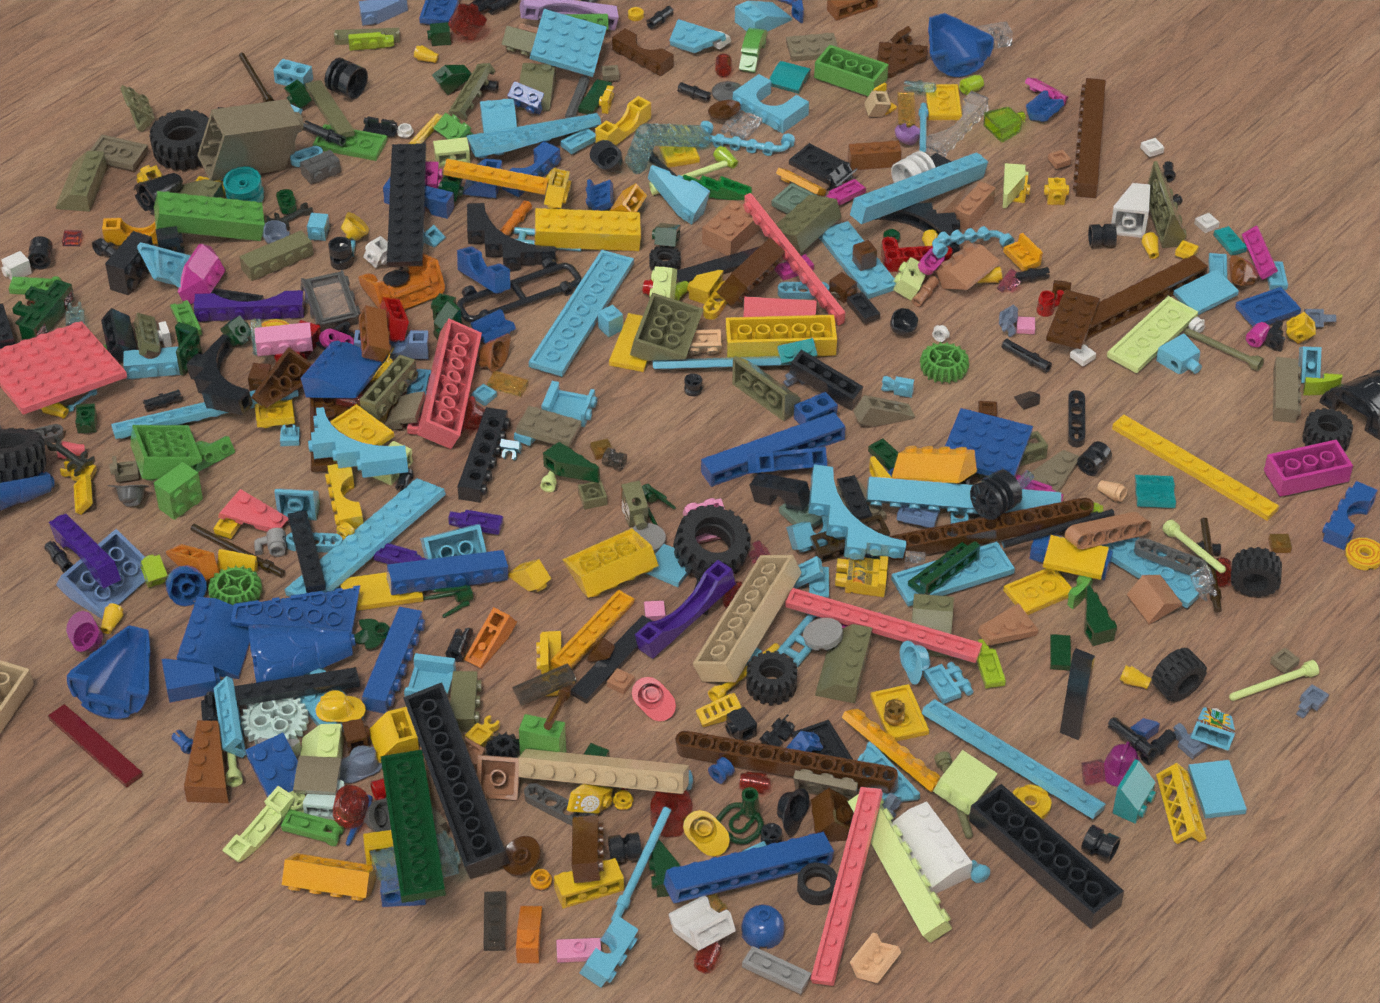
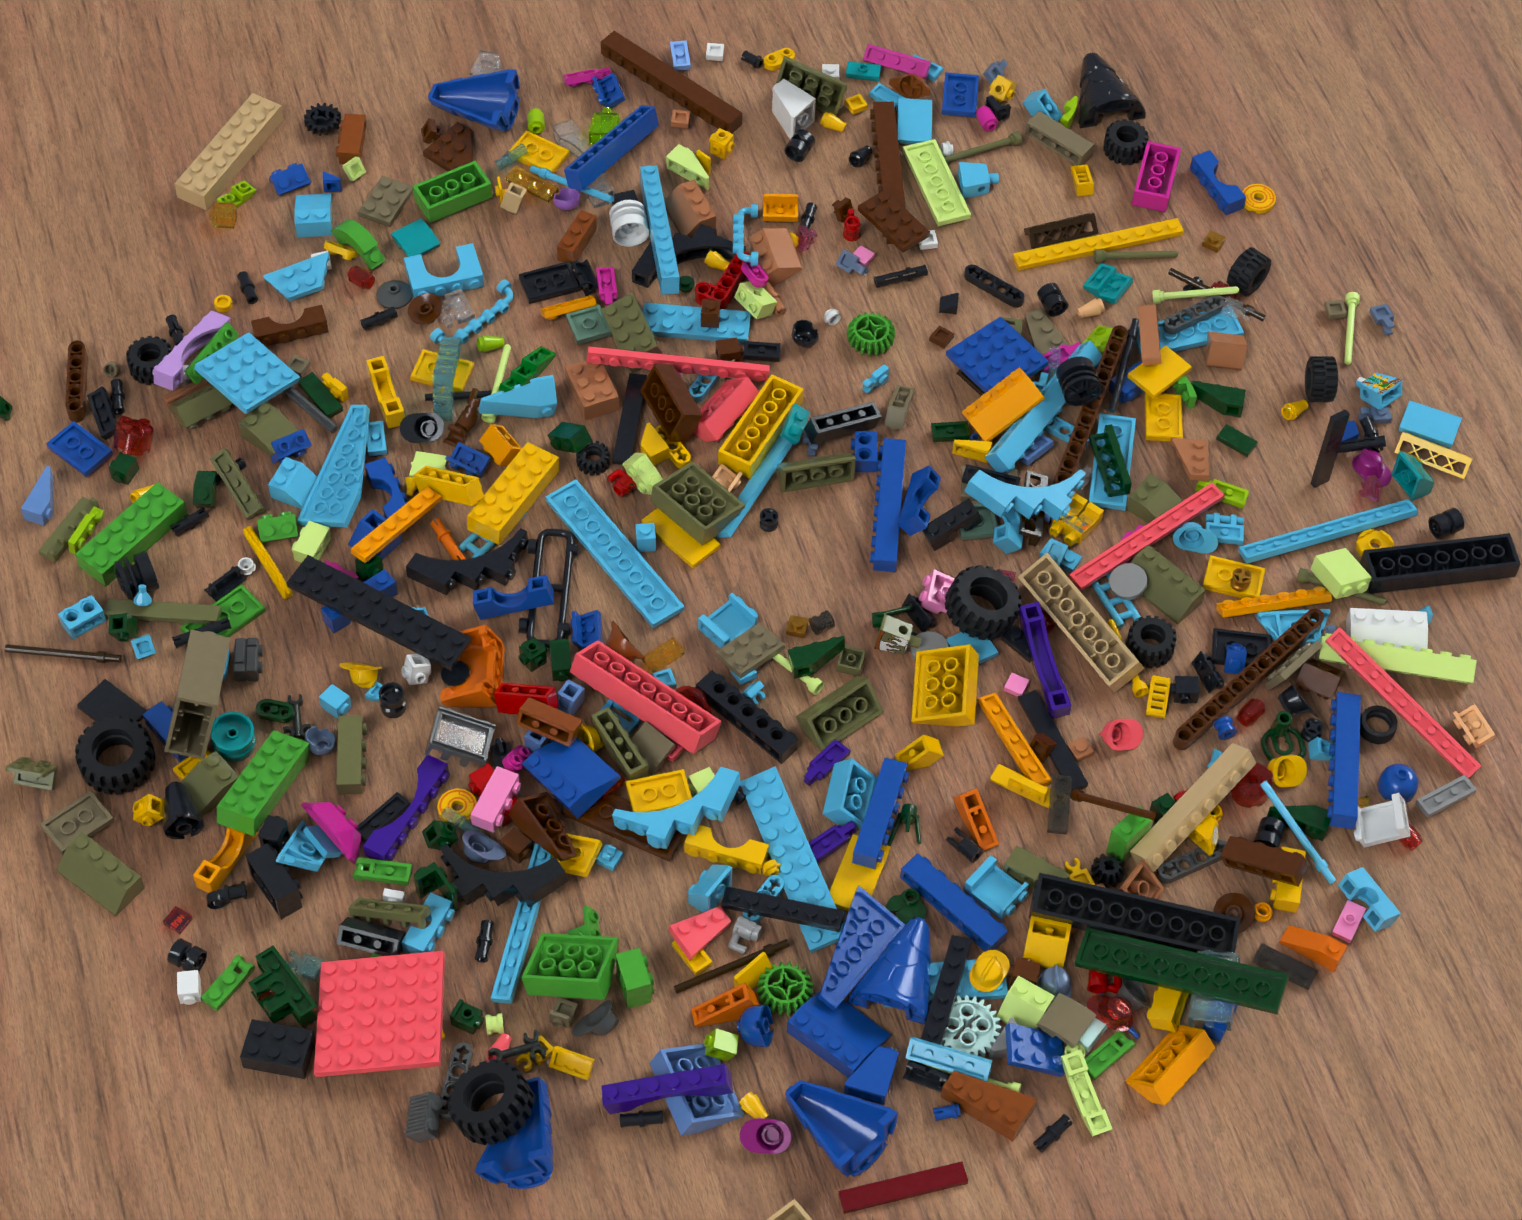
camera: 60 degrees left, 10 degrees up
(89, 436) = (494, 1024): none -> yellowish green wheel
(207, 821) = (1052, 1133): none -> black pin
(242, 356) = (481, 848): none -> sand blue piece
(329, 91) = (142, 597): none -> medium azure rock
(390, 62) = (131, 533): none -> bright green brick
(421, 86) = (189, 521): none -> black pin
(532, 509) = (840, 712): none -> olive slope
(579, 180) = (427, 459): none -> yellowish green piece
(639, 176) = (465, 421): none -> reddish brown piece
(672, 520) = (918, 614): none -> black hinge
(737, 40) = (336, 248): none -> yellow plate
(824, 15) = (354, 168): none -> yellowish green tile
(976, 126) = (611, 147): none -> blue brick
(1126, 130) = (680, 55): none -> light blue plate
(1131, 276) = (858, 157): none -> black cone
(1180, 472) = (1101, 255): none -> olive piece
(1187, 187) = (774, 60): none -> yellow plate
(1189, 431) = (1060, 224): none -> dark brown fence
(1254, 426) = (1082, 181): none -> yellow slope

